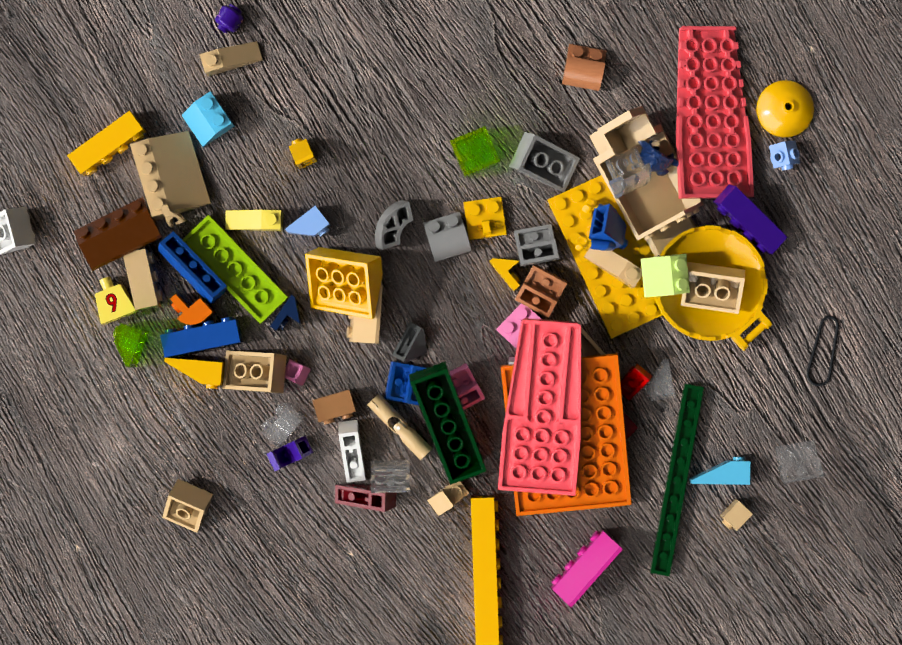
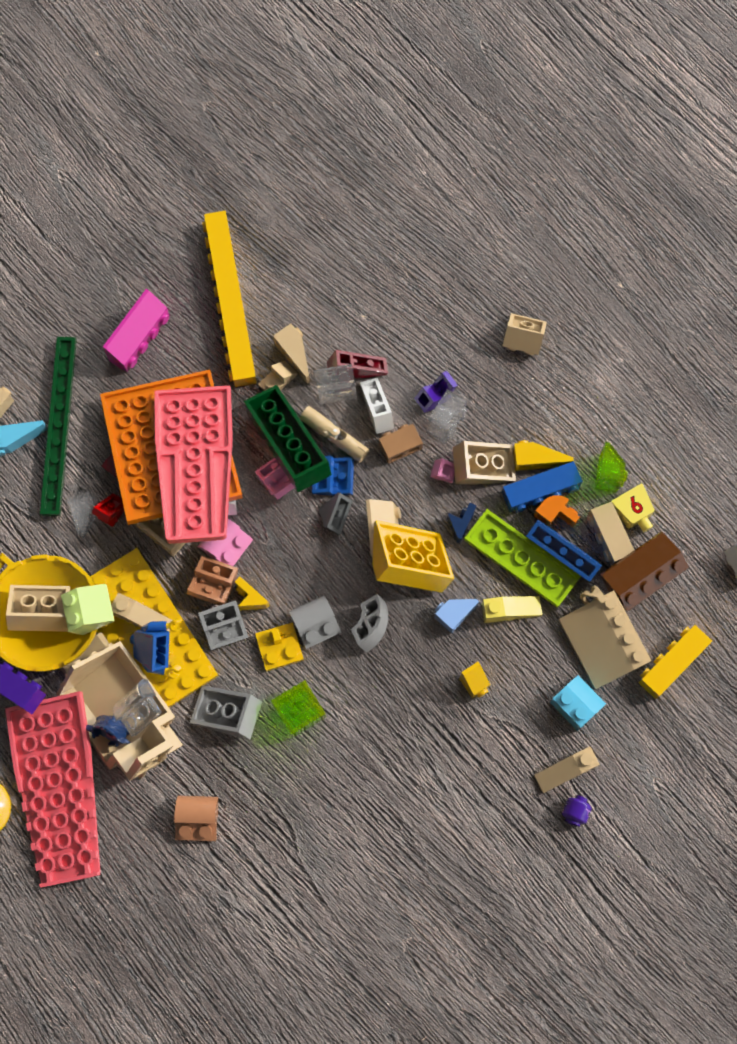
camera: 175 degrees right, 15 degrees down
(428, 528) = (291, 345): none -> tan slope

